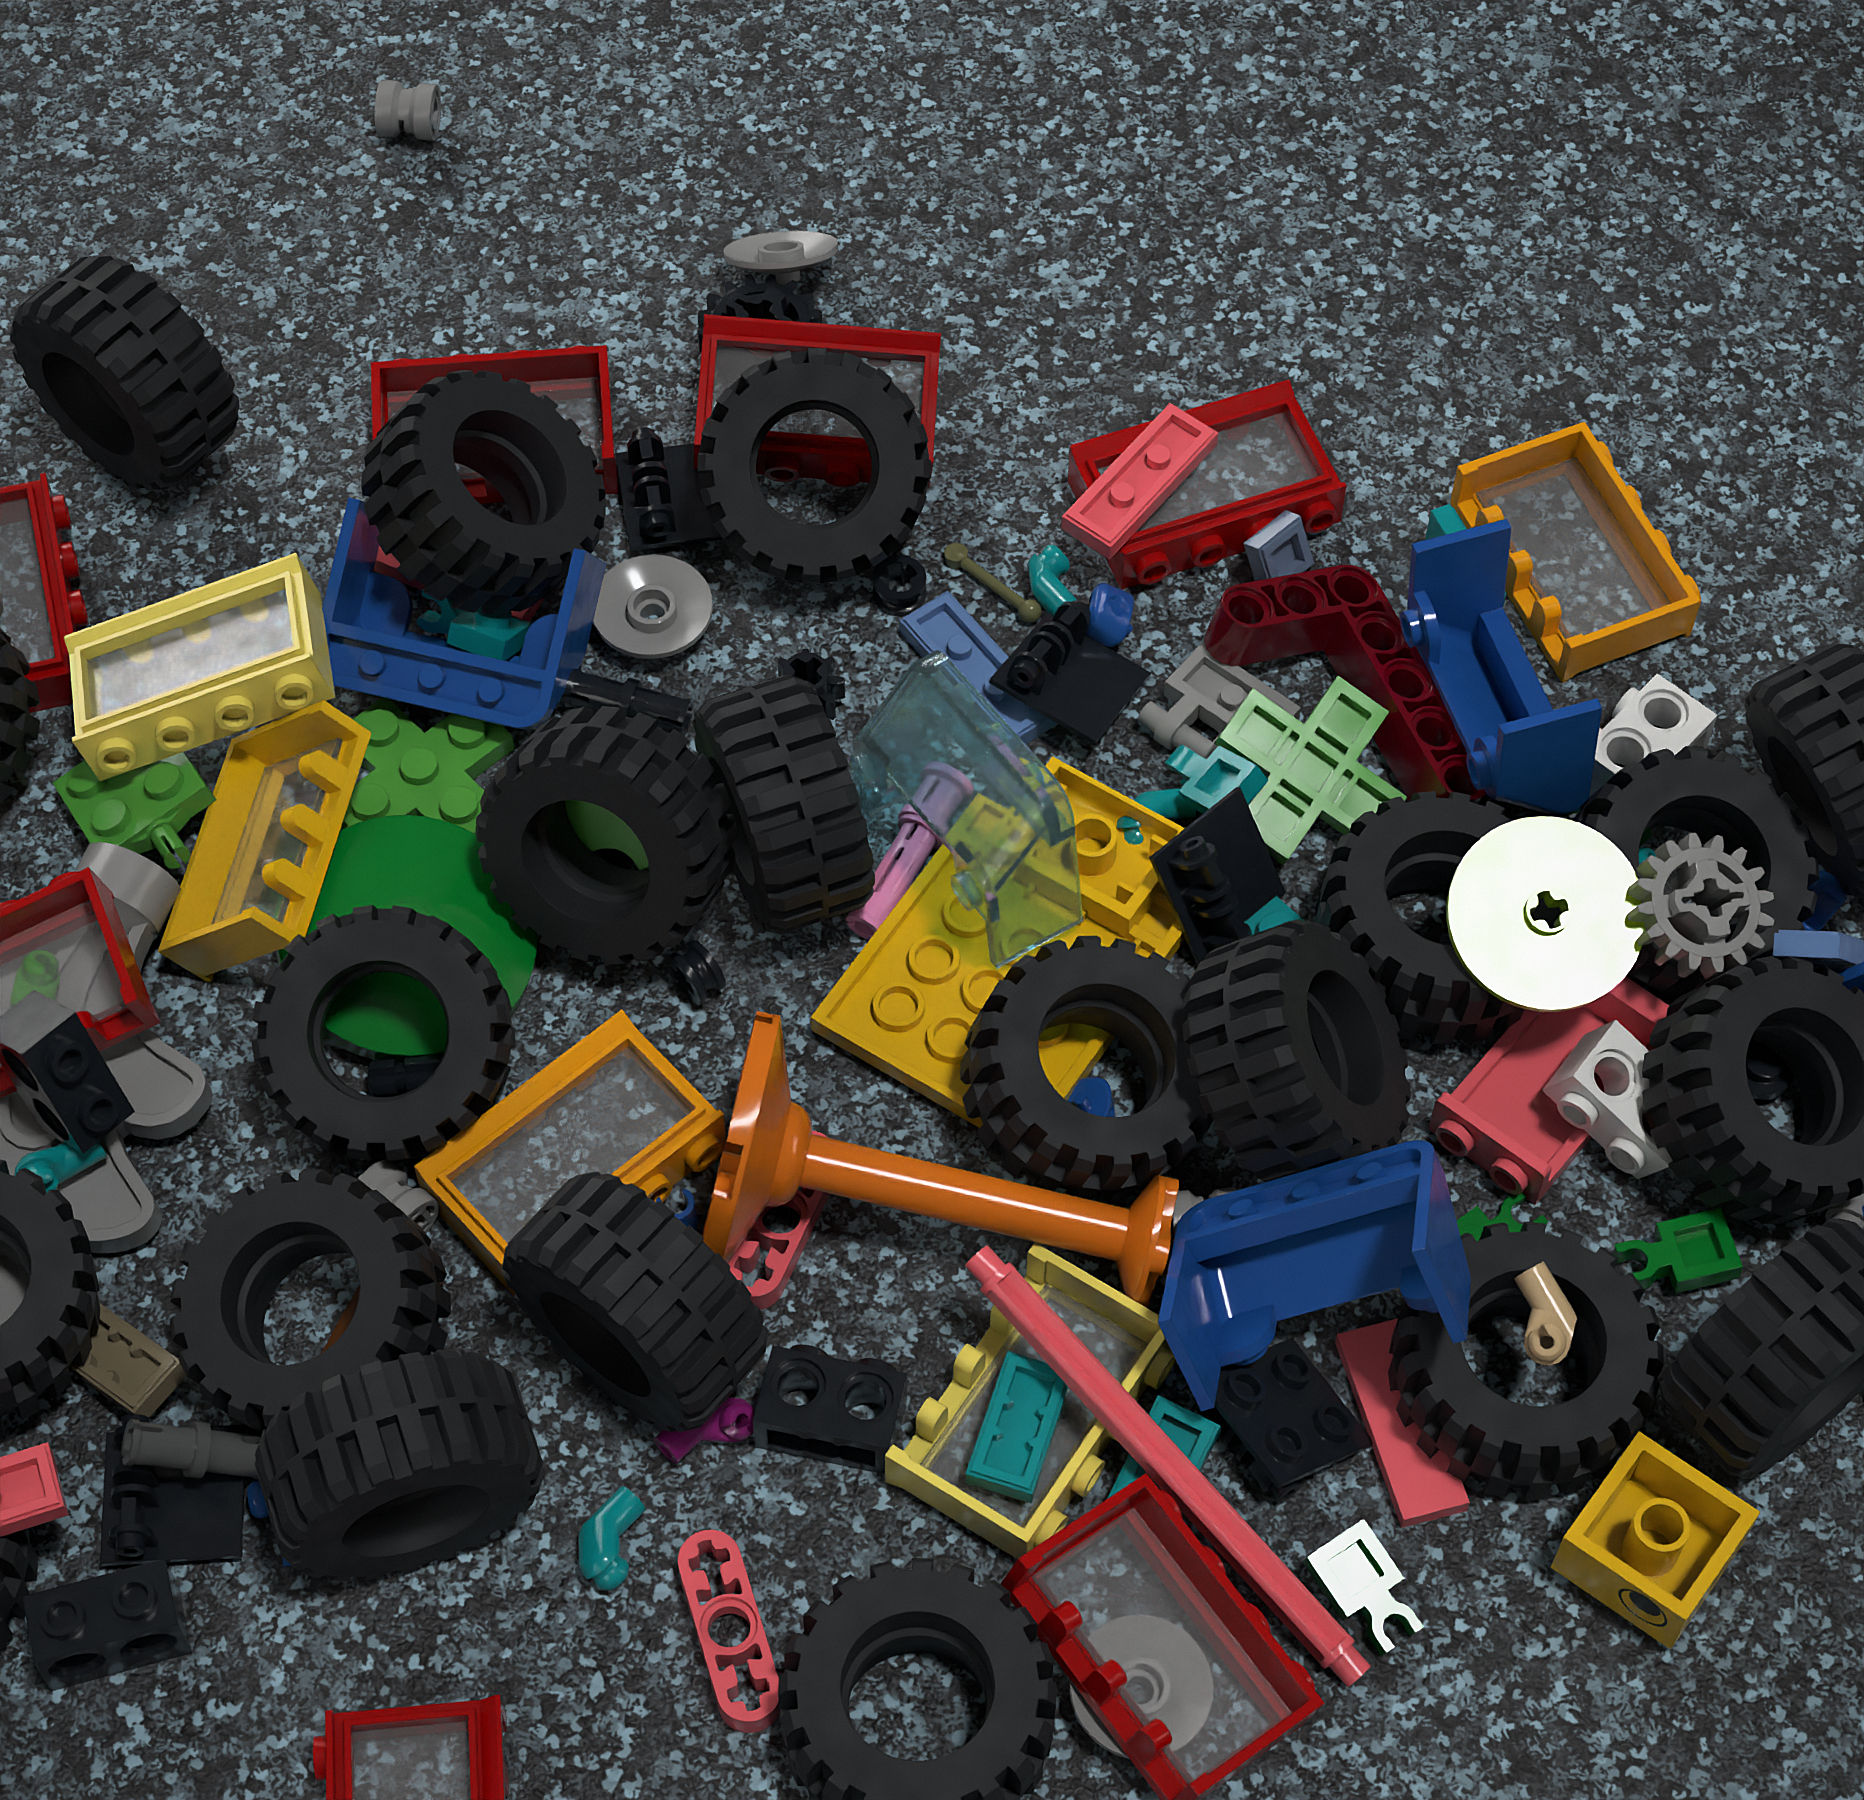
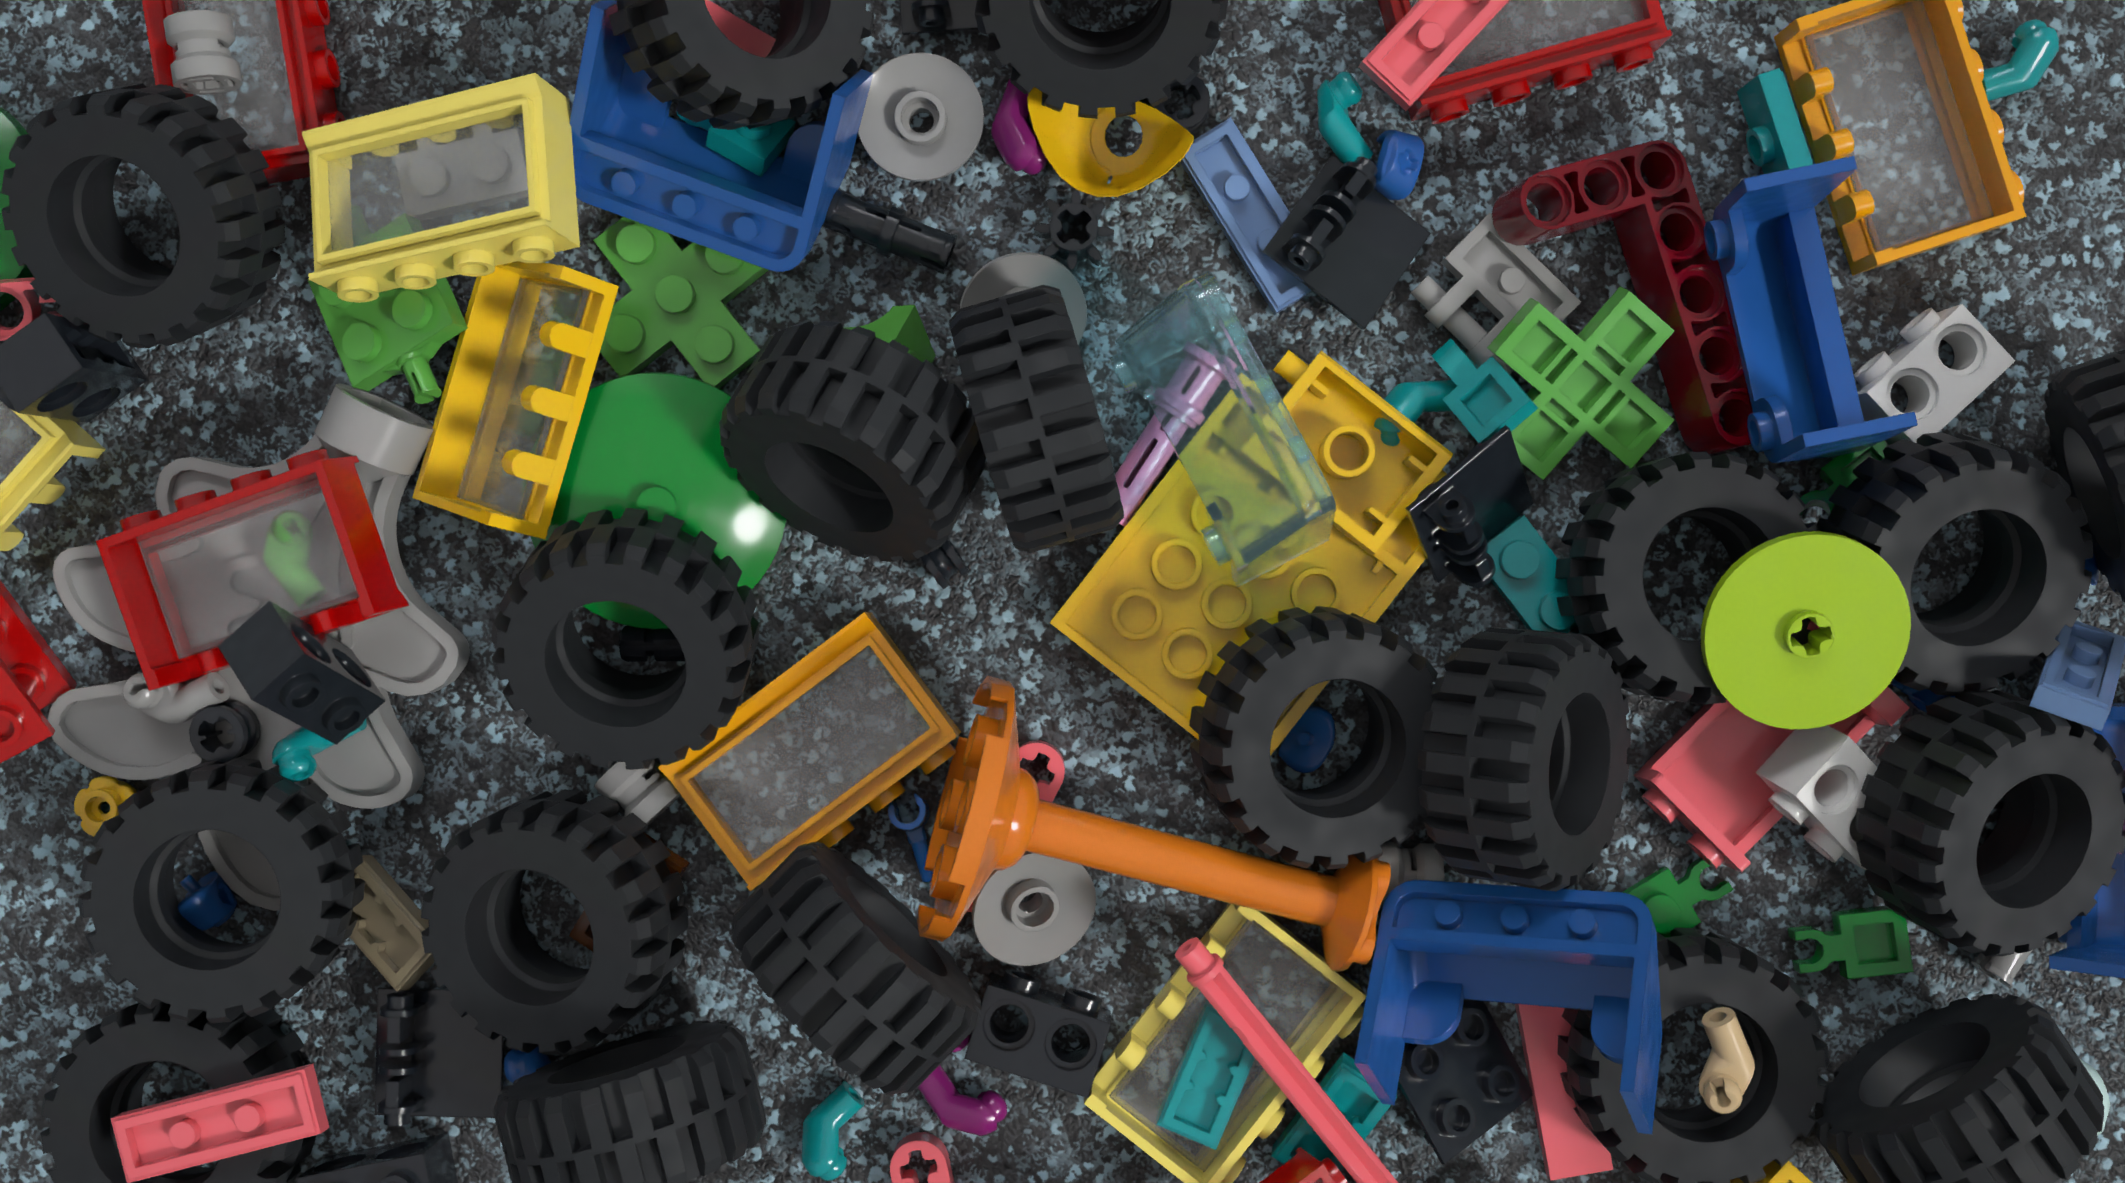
camera: 10 degrees right, 30 degrees up
(190, 1448) = (440, 1039): dark grey pin -> none
(741, 617) = (1013, 134): none -> magenta arm
(751, 1503) = (960, 1111): none -> magenta arm
(804, 612) = (1081, 155): none -> yellow piece
(844, 1273) = (1042, 926): none -> light grey dish
(957, 557) = (1244, 68): olive hinge -> none
(1279, 548) = (1585, 103): sand blue tile -> none
(1684, 499) = (2035, 50): none -> teal arm
(1689, 929) = (1967, 643): light grey gear -> none

